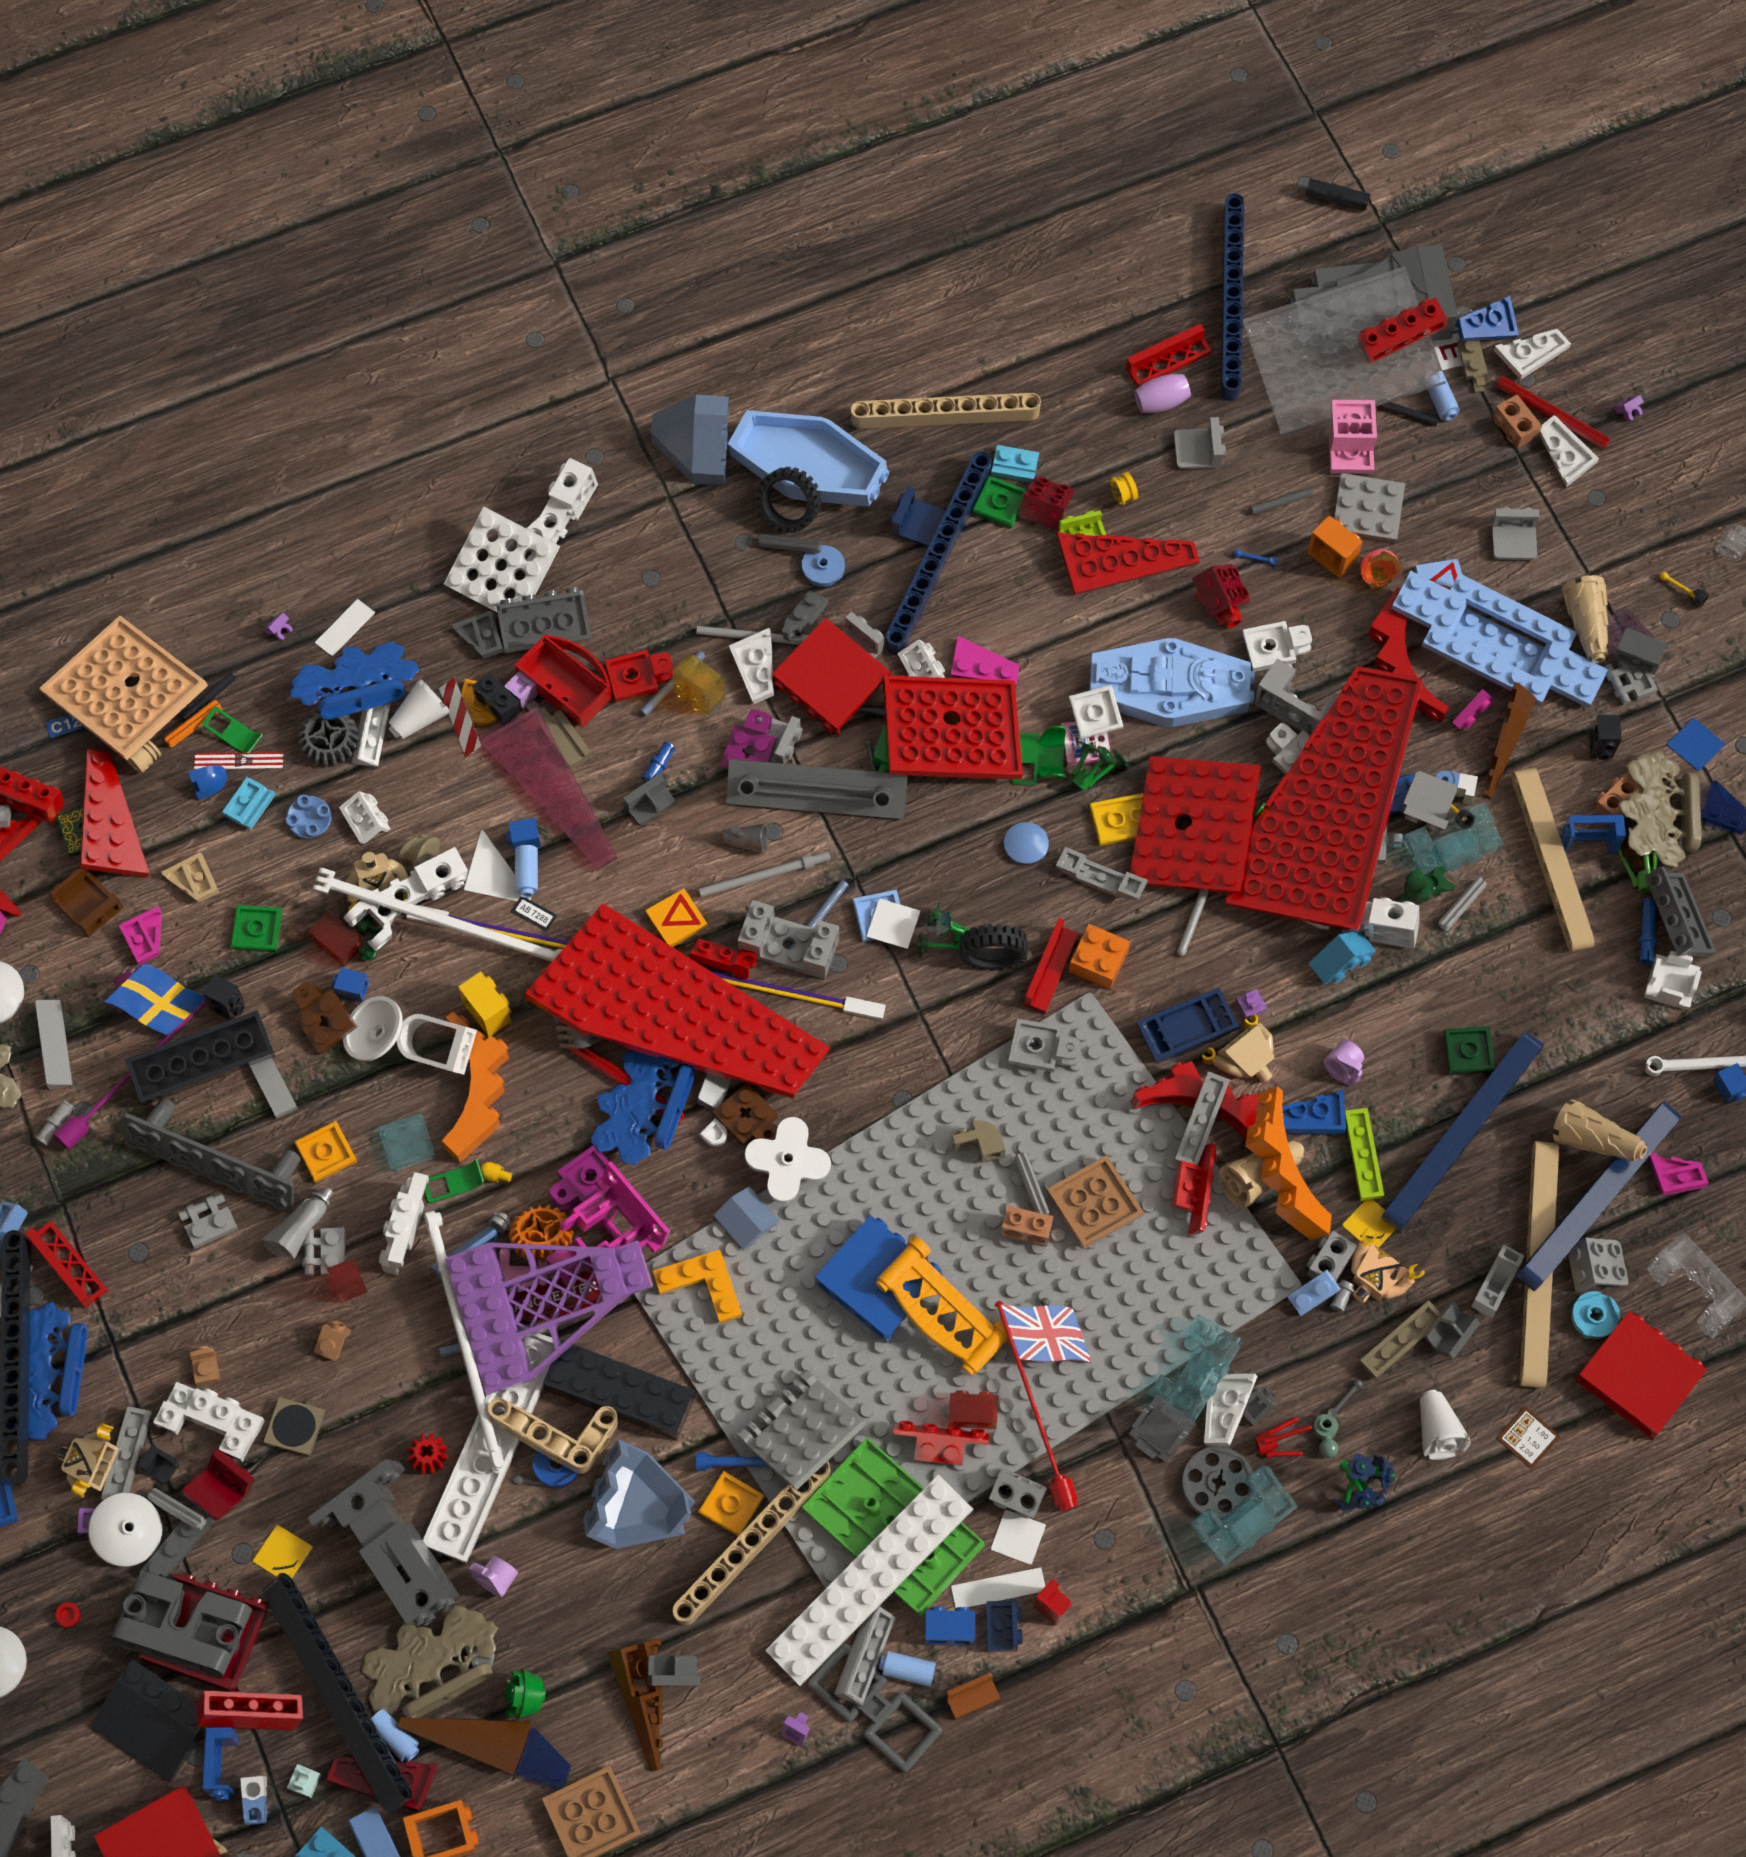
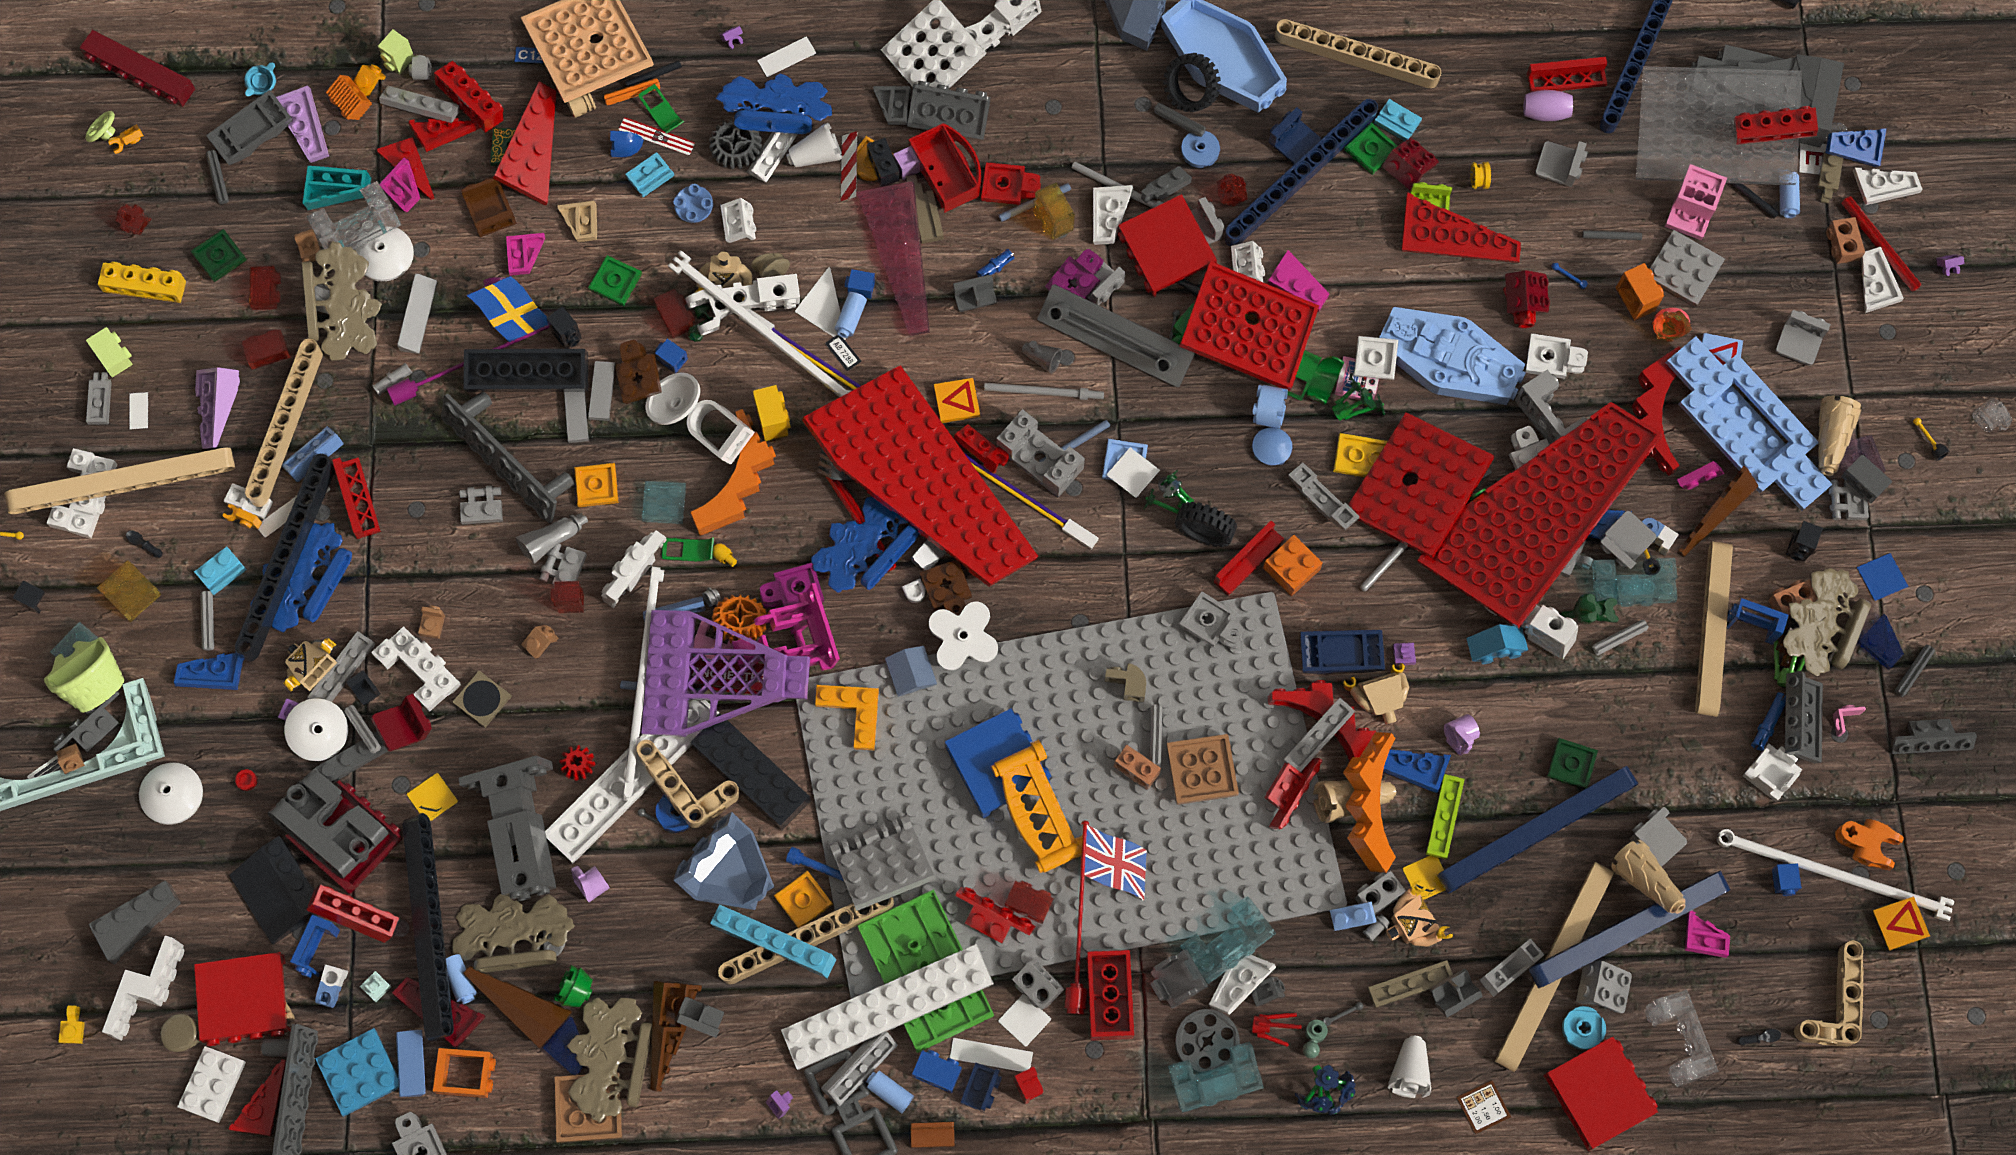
camera: 20 degrees right, 5 degrees up
(290, 1050) = (602, 391): none -> light grey tile
(584, 1751) = (603, 1052): none -> dark tan plant
(730, 1557) = (773, 940): none -> medium azure arch
(874, 595) = (1232, 190): none -> clear red brick
(1007, 802) = (1270, 406): none -> light blue brick
(1103, 1460) = (1120, 985): none -> red brick
(1588, 1088) = (1660, 836): none -> light grey bracket
(1719, 891) = (1847, 710): none -> bright pink bracket

